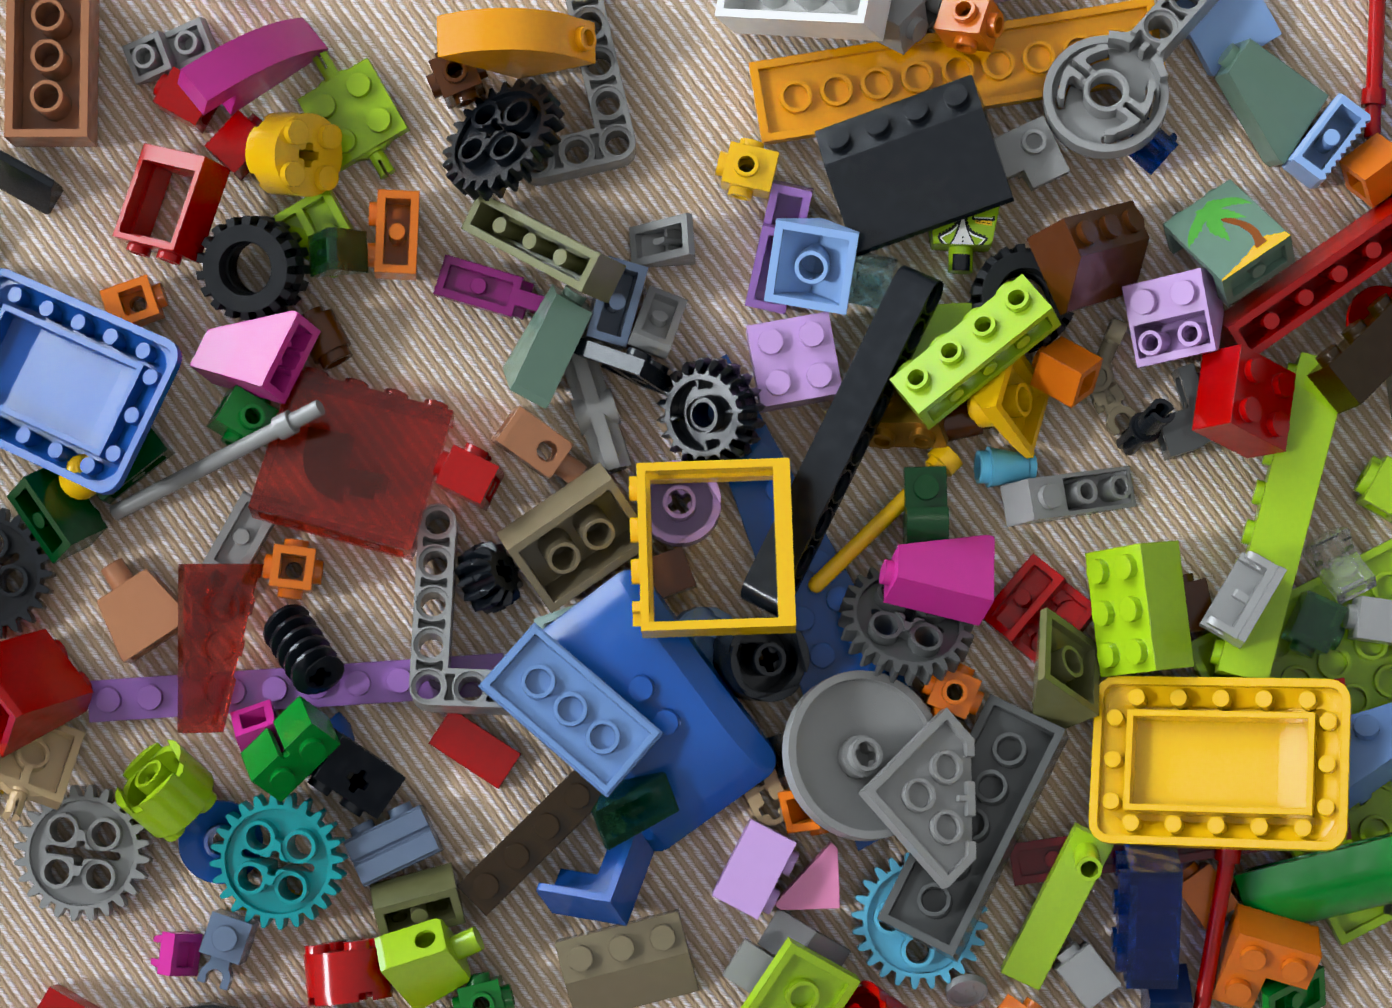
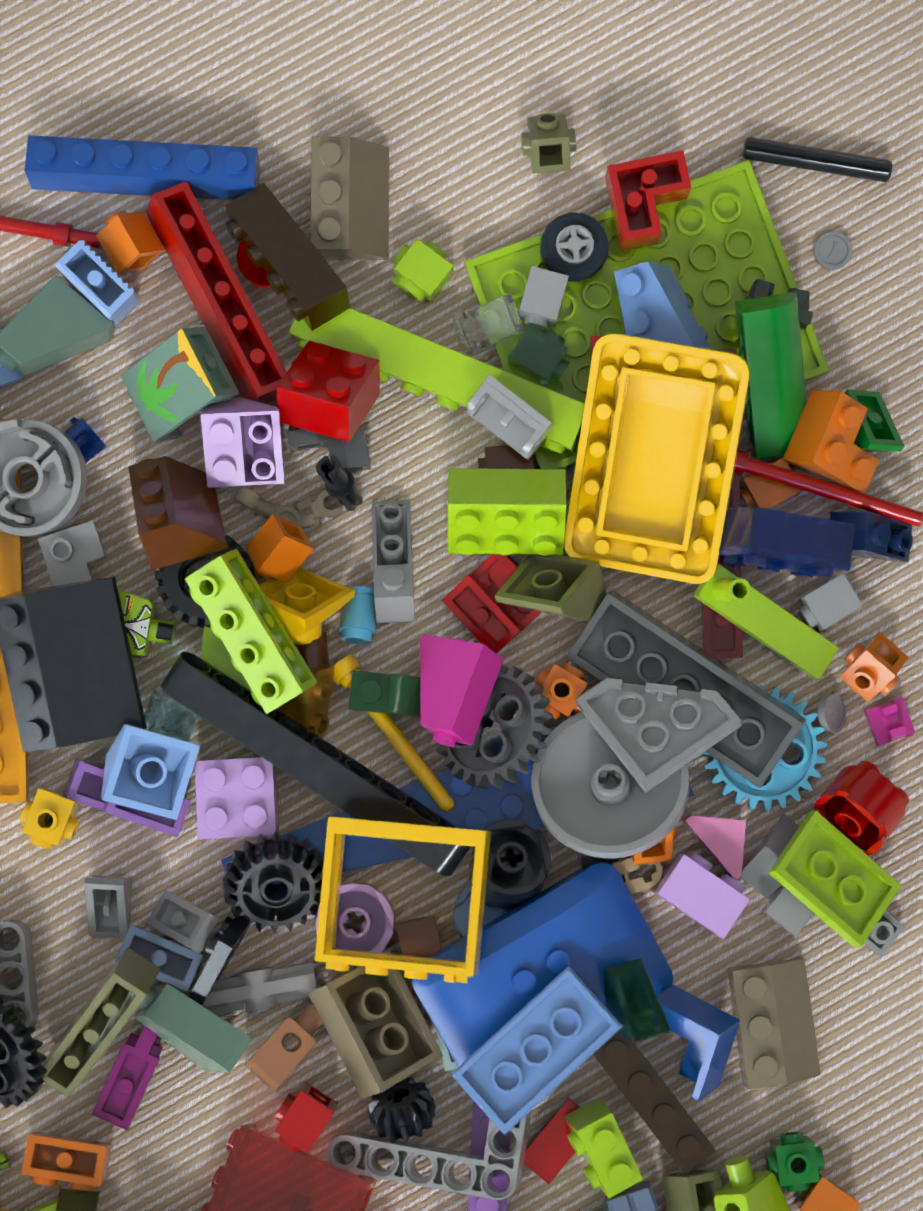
camera: 85 degrees left, 0 degrees up
(474, 795) = (603, 1147): none -> lime brick

